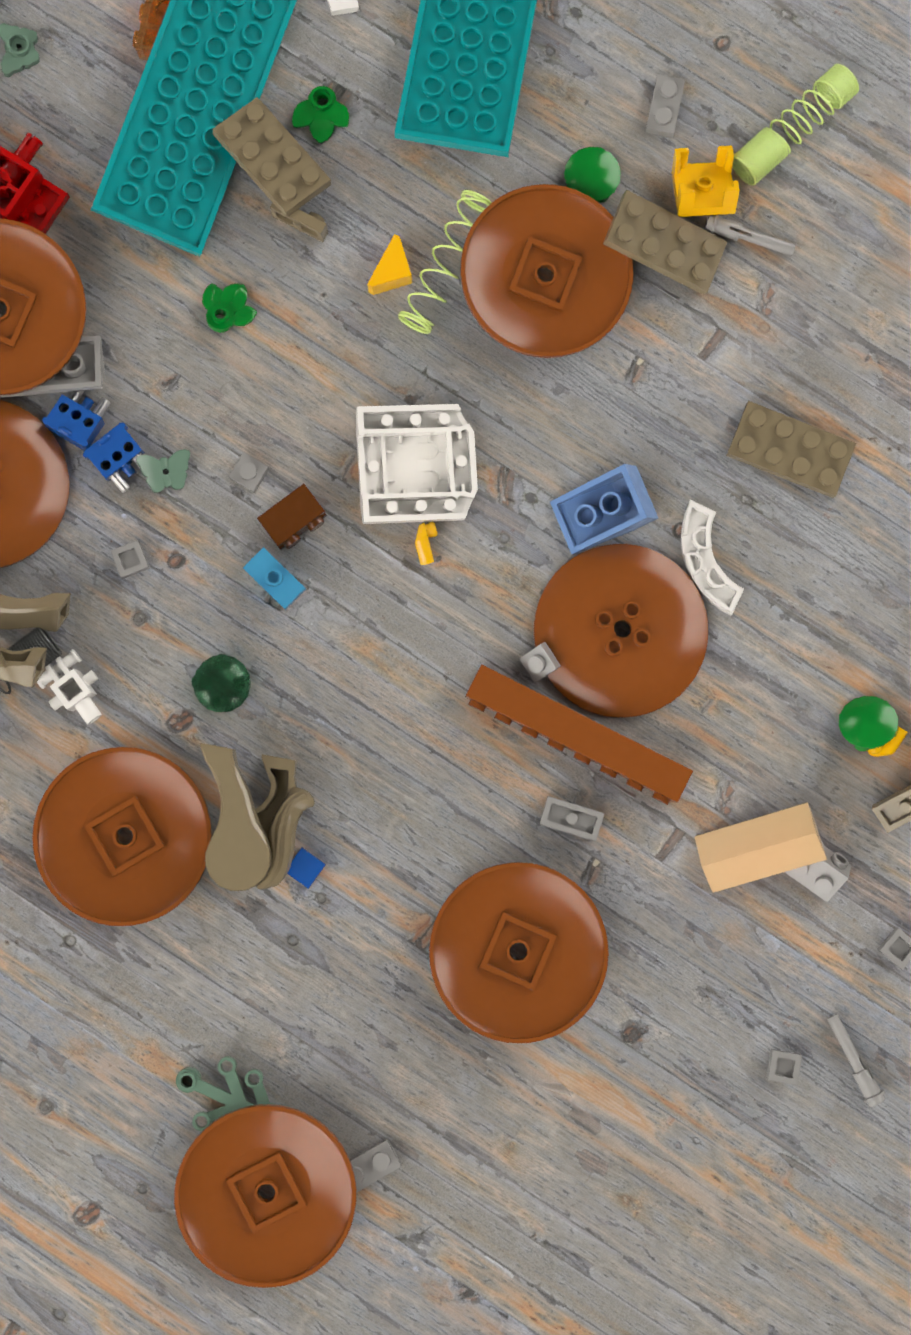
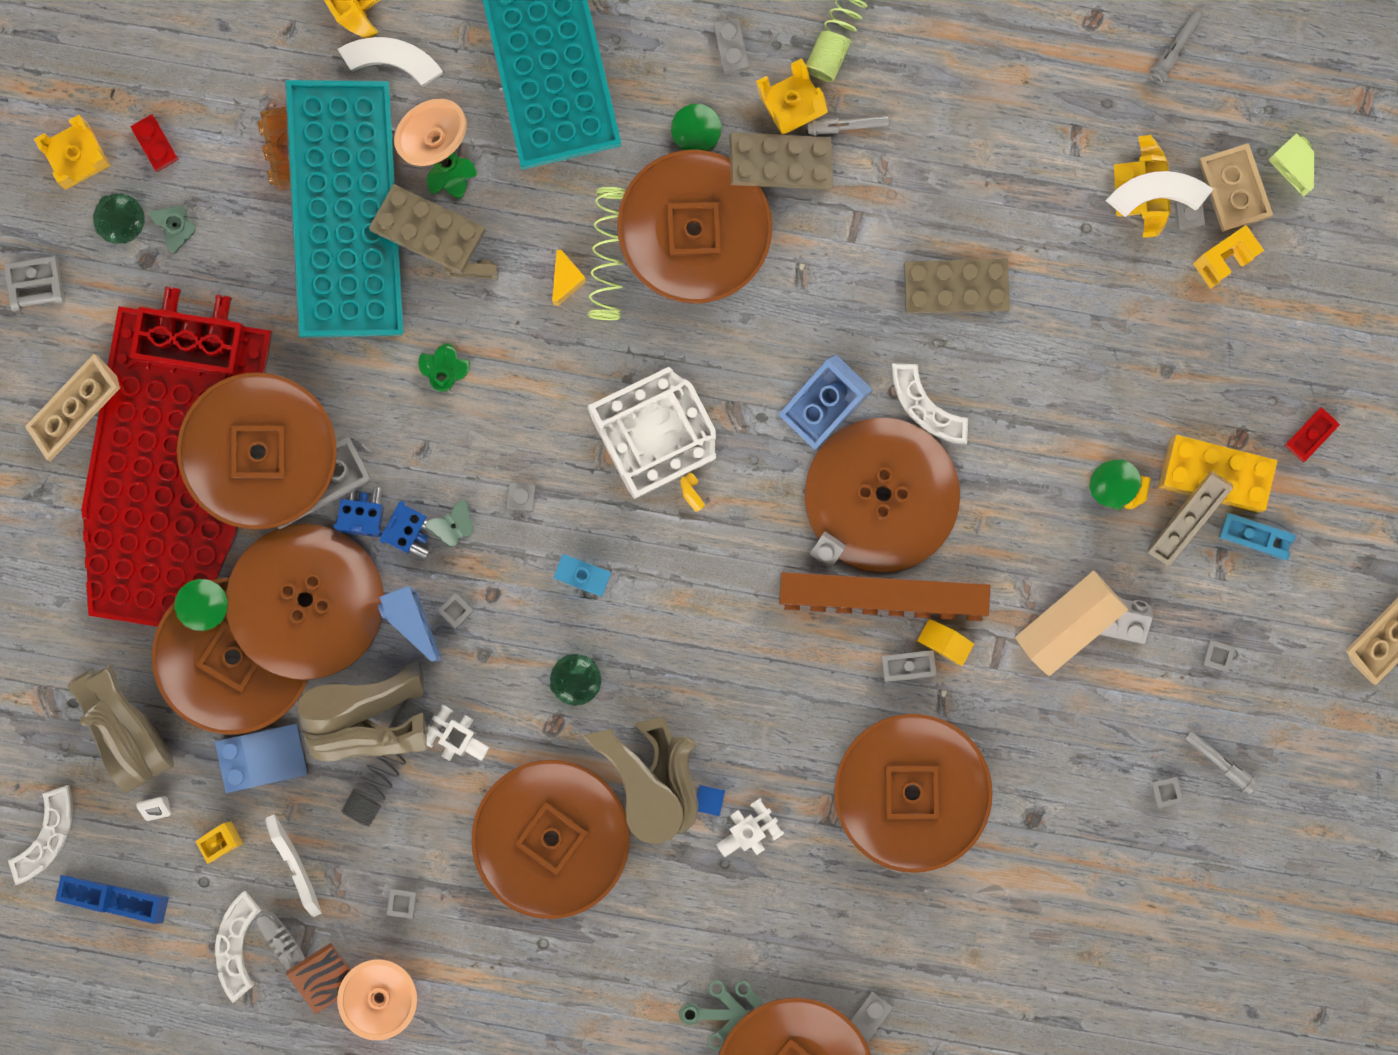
camera: 20 degrees left, 0 degrees up
(77, 544) = (407, 615): none -> medium blue slope
(293, 517) = (573, 518): reddish brown brick -> none
(318, 61) = (430, 132): none -> light nougat dish
(330, 918) = (747, 832): none -> white piece
(620, 810) = (945, 642): none -> yellow slope

